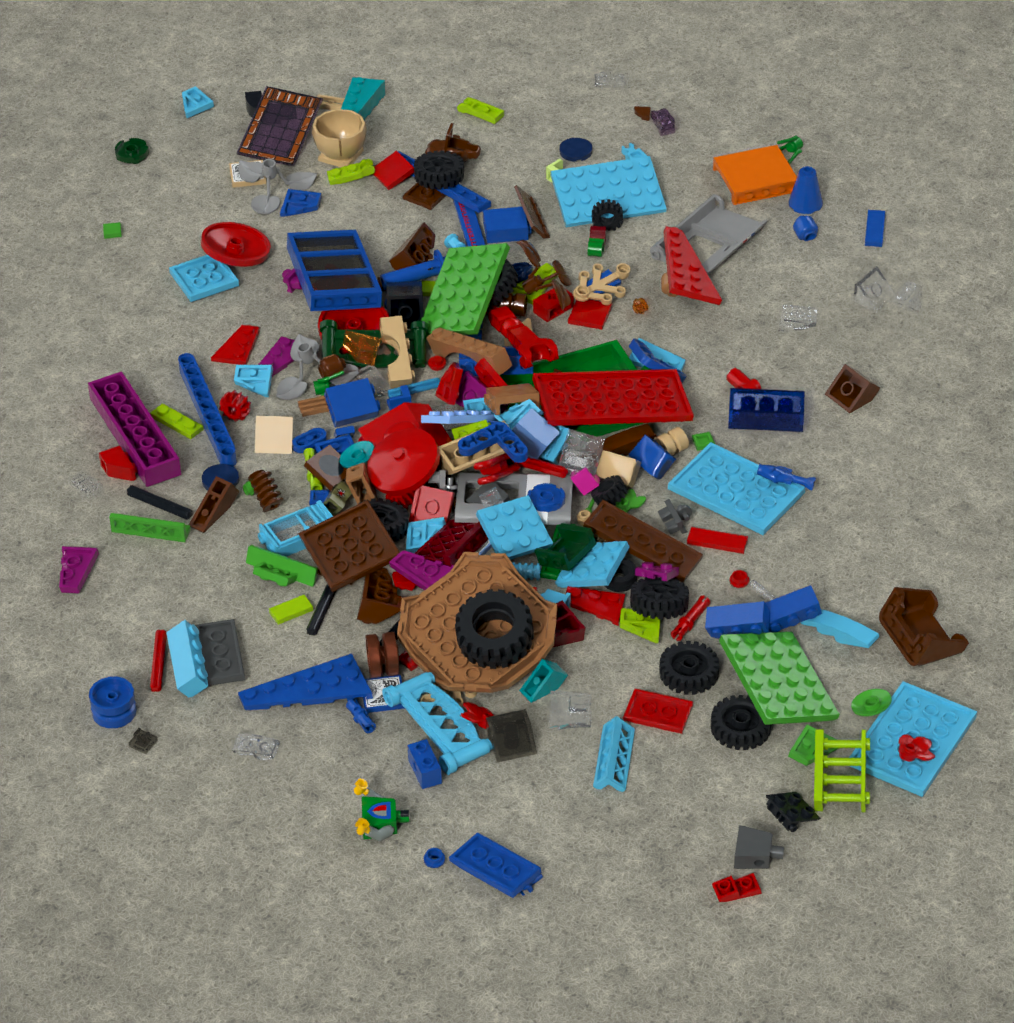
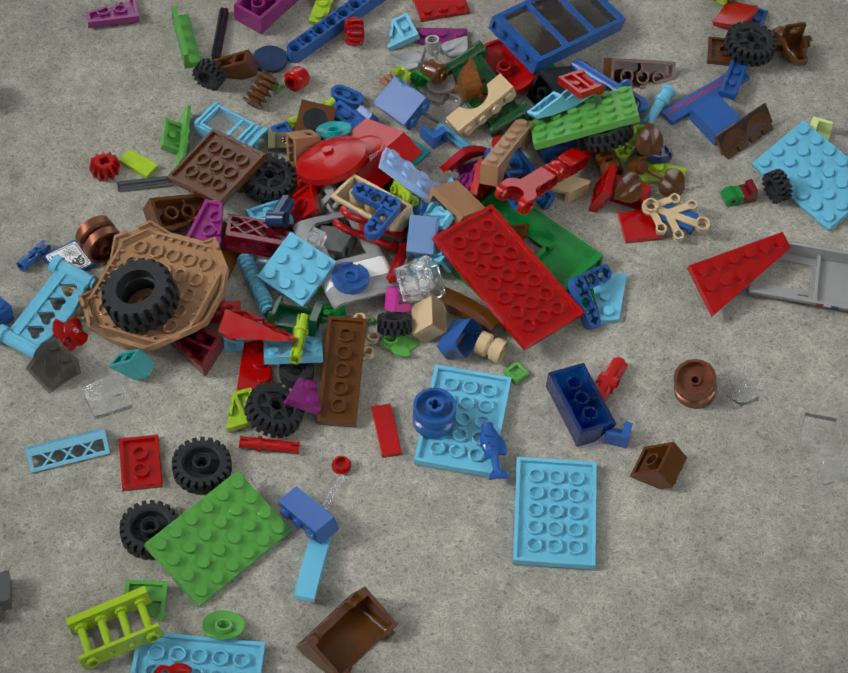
camera: 60 degrees right, 10 degrees up
(158, 660) = (37, 105): red axle -> none
(187, 659) = (39, 119): medium azure brick -> none
(218, 519) = (209, 74): none -> black tyre
(221, 652) = (63, 138): dark grey piece -> none
(264, 462) = (297, 78): none -> red head
(273, 434) = (334, 69): tan piece -> none
(281, 631) = (104, 166): none -> red gear
(311, 686) = (51, 210): blue wing -> none
(330, 380) = (402, 73): none -> lime hinge
(431, 273) = (580, 84): none -> red plate
(433, 296) = (554, 104): none -> medium azure slope
(438, 520) = (280, 214): none -> dark blue piece
(543, 313) = (603, 188): none -> red plate
(566, 579) = (245, 325): none -> red wedge
(595, 544) = (301, 333): none -> lime pin
(640, 306) = (675, 260): clear orange plate -> none
(676, 524) = (395, 386): dark grey hips -> none
(729, 494) = (434, 413): none -> blue wheel
(737, 619) = (271, 479): blue brick -> none
(786, 336) = (695, 383): none -> copper wheel
(790, 809) = (58, 605): black hinge -> none
(811, 399) = (619, 437): none -> blue panel
(864, 466) = (555, 513): none -> medium azure plate

